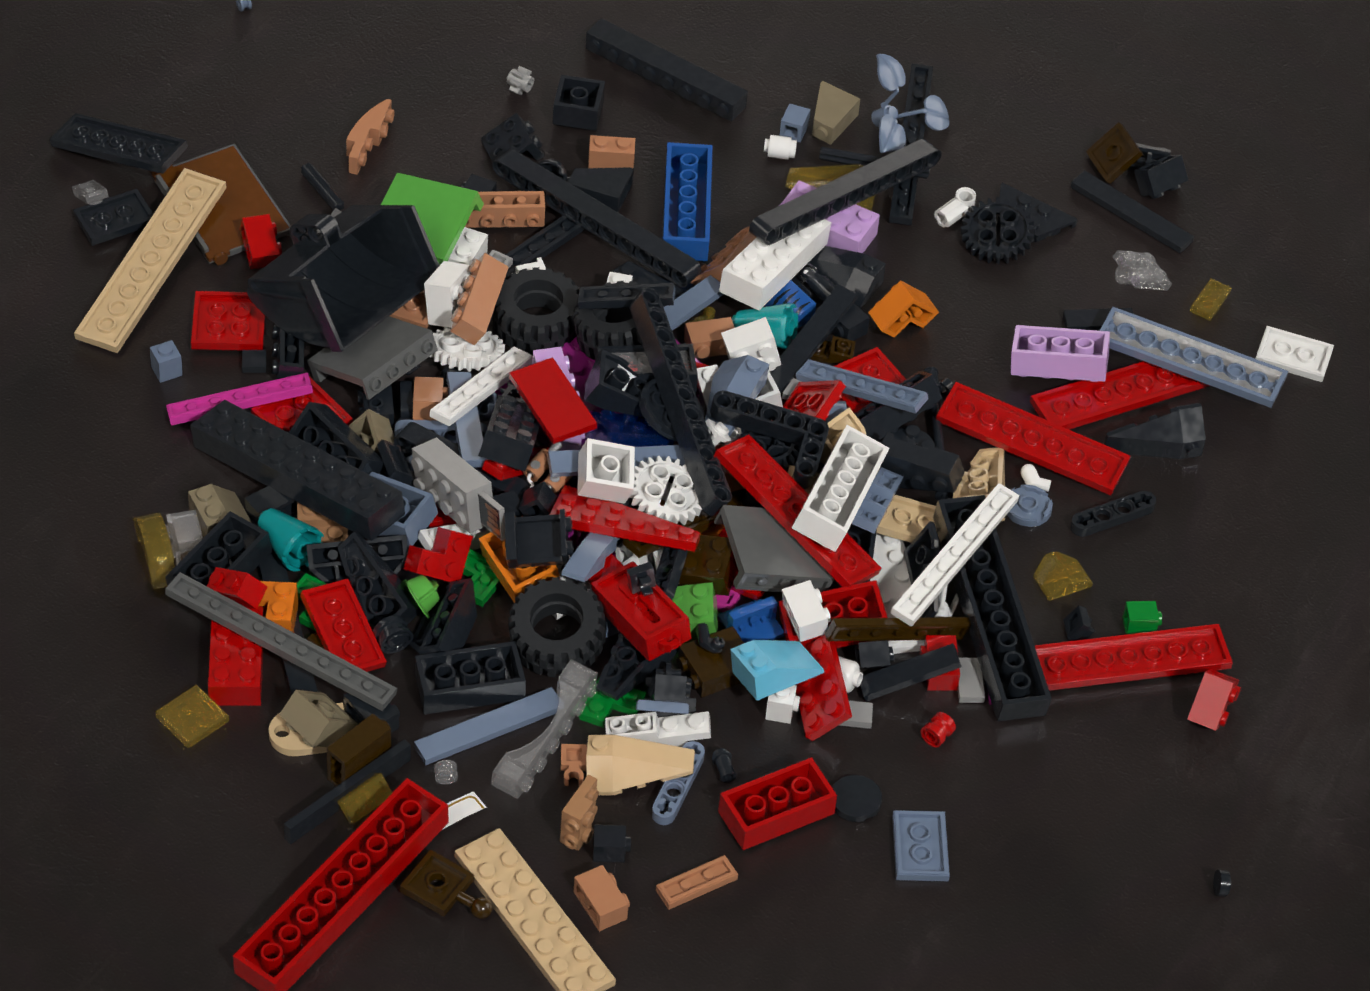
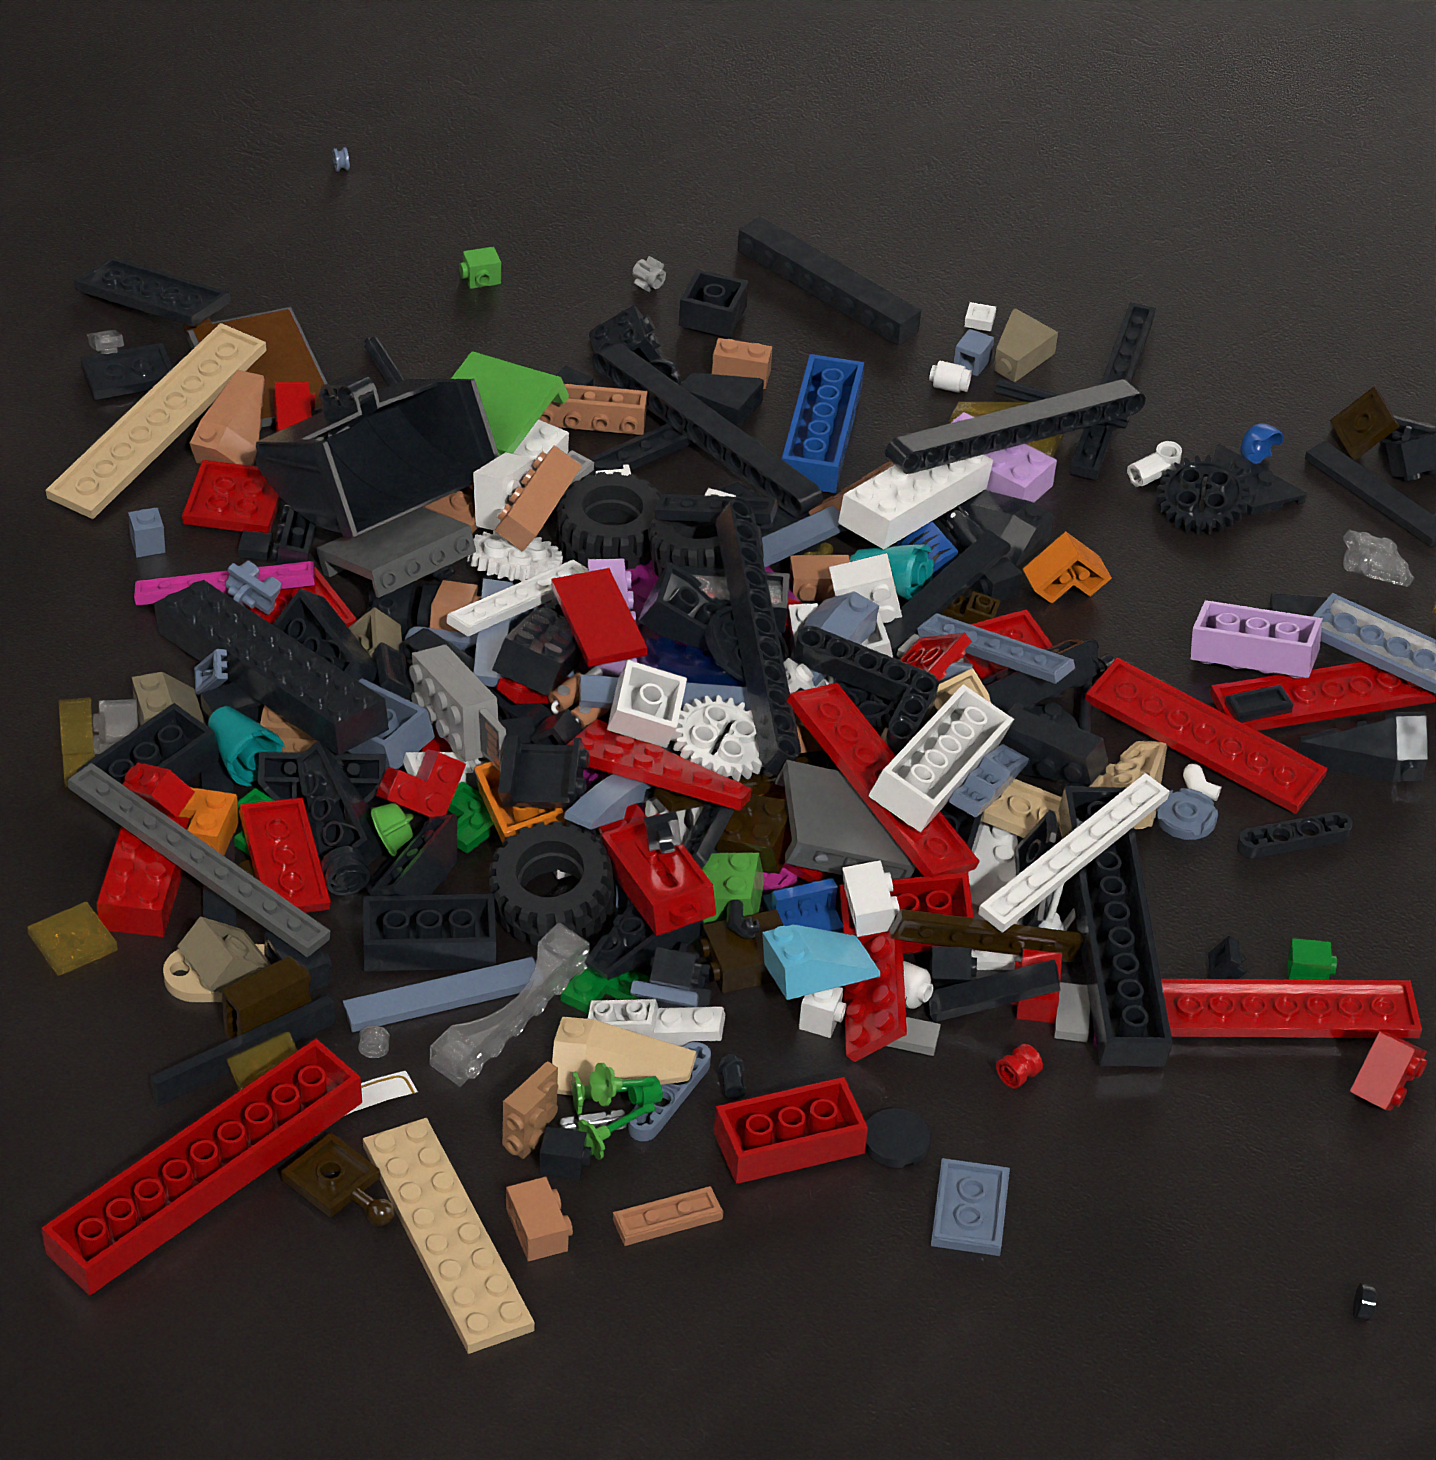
camera: 10 degrees right, 5 degrees down
(213, 258) = (232, 422): none -> nougat wedge
(259, 484) = (214, 677): none -> sand blue tile
(264, 404) = (251, 591): none -> sand blue hips
(368, 132) = (453, 310): nougat slope -> none
(381, 87) = (481, 267): none -> bright green brick
(573, 761) = (537, 1047): nougat plate -> none
(626, 815) = (597, 1119): none -> axle
(634, 790) = (604, 1087): none -> bright green plant
(794, 89) = (980, 316): none -> white plate
(891, 134) = (1087, 372): sand blue plant -> none
(1033, 178) = (1258, 442): none -> blue hair
(1060, 575) = (1214, 901): clear yellow slope -> none
(1070, 407) = (1259, 703): none -> black tile

